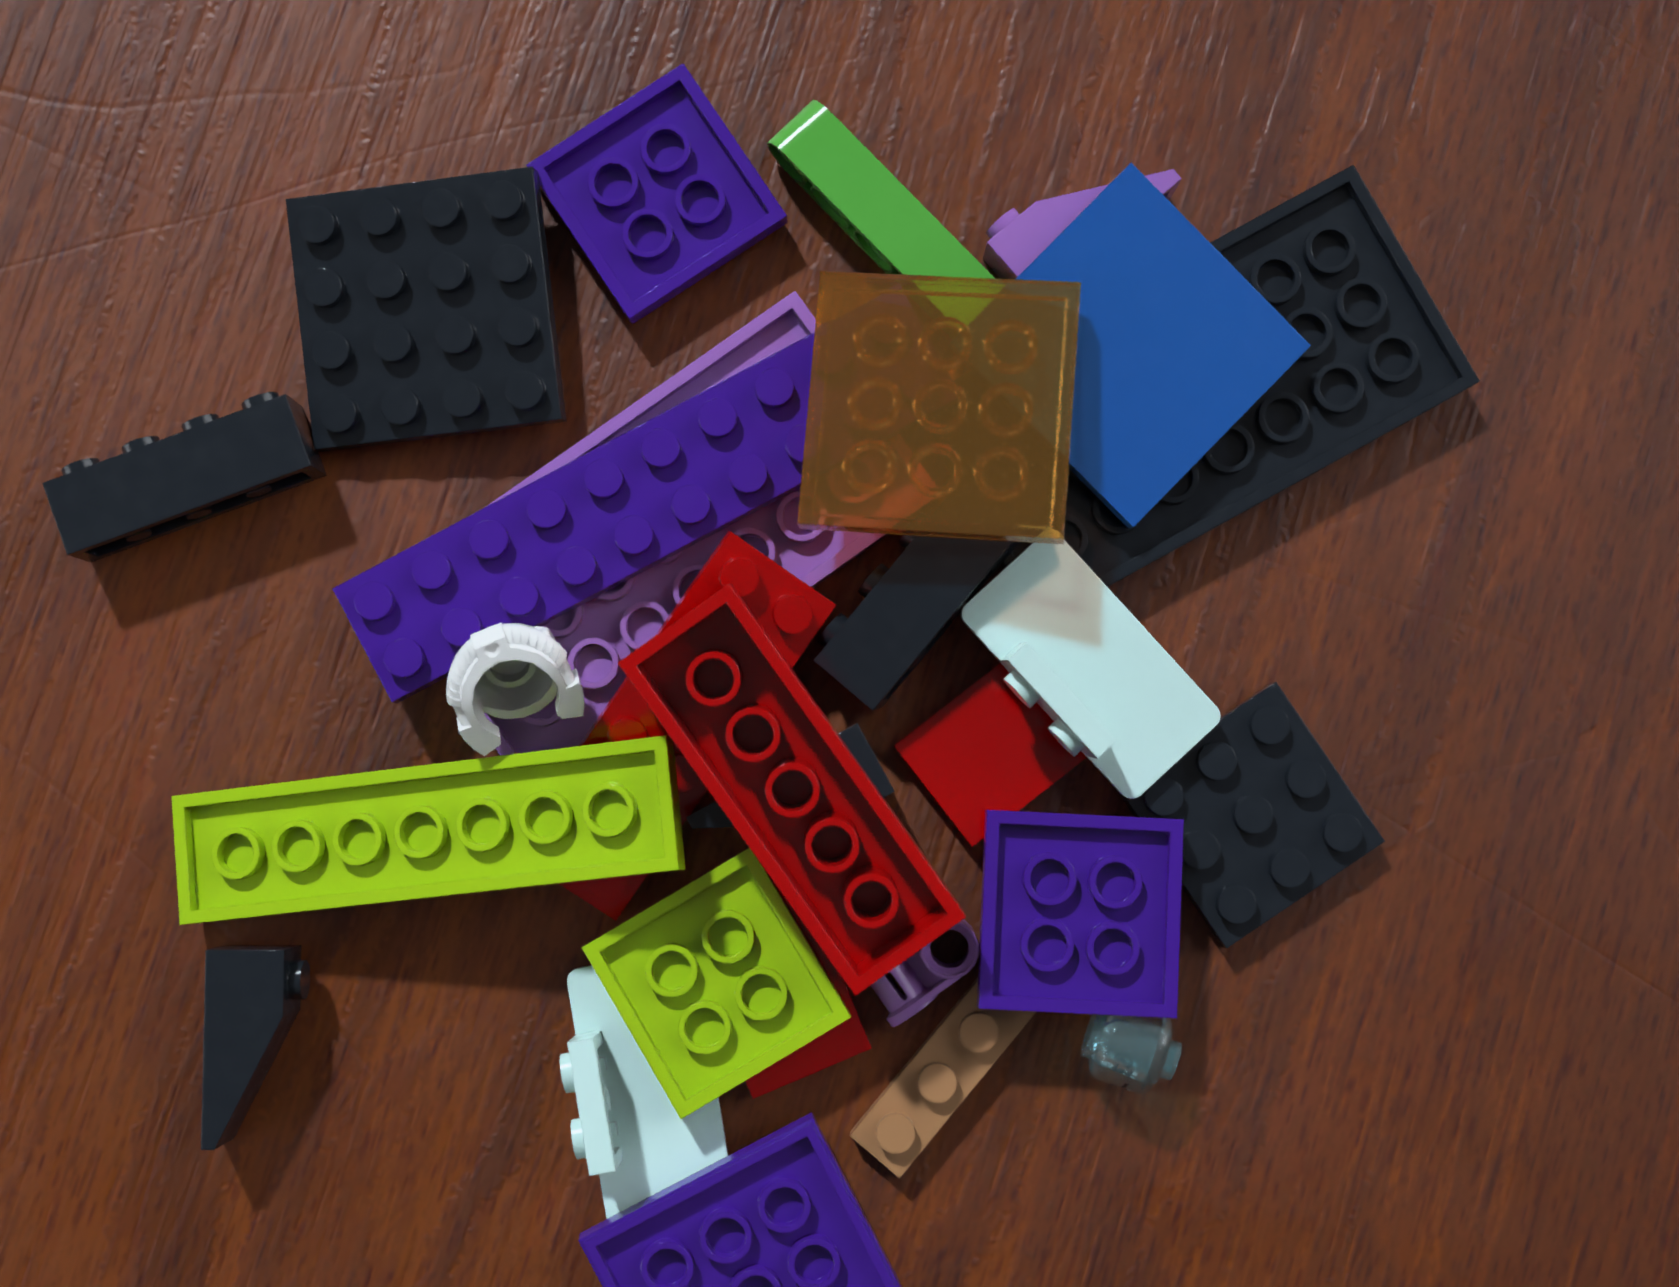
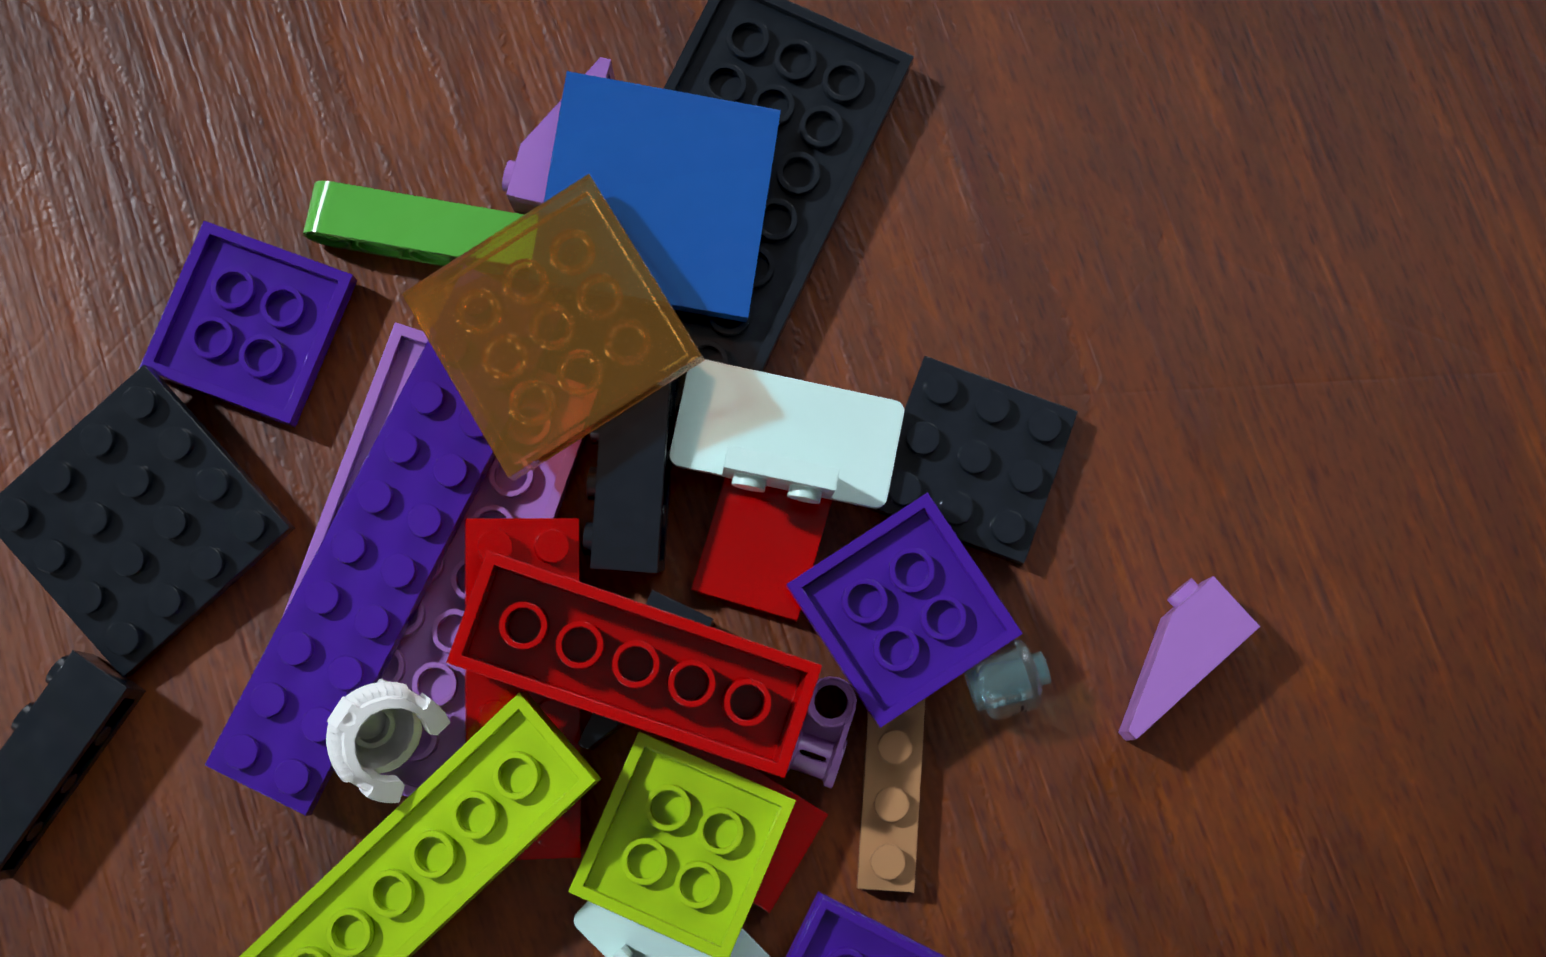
camera: 35 degrees left, 5 degrees down
(1320, 1141) = (1185, 648): none -> medium lavender slope

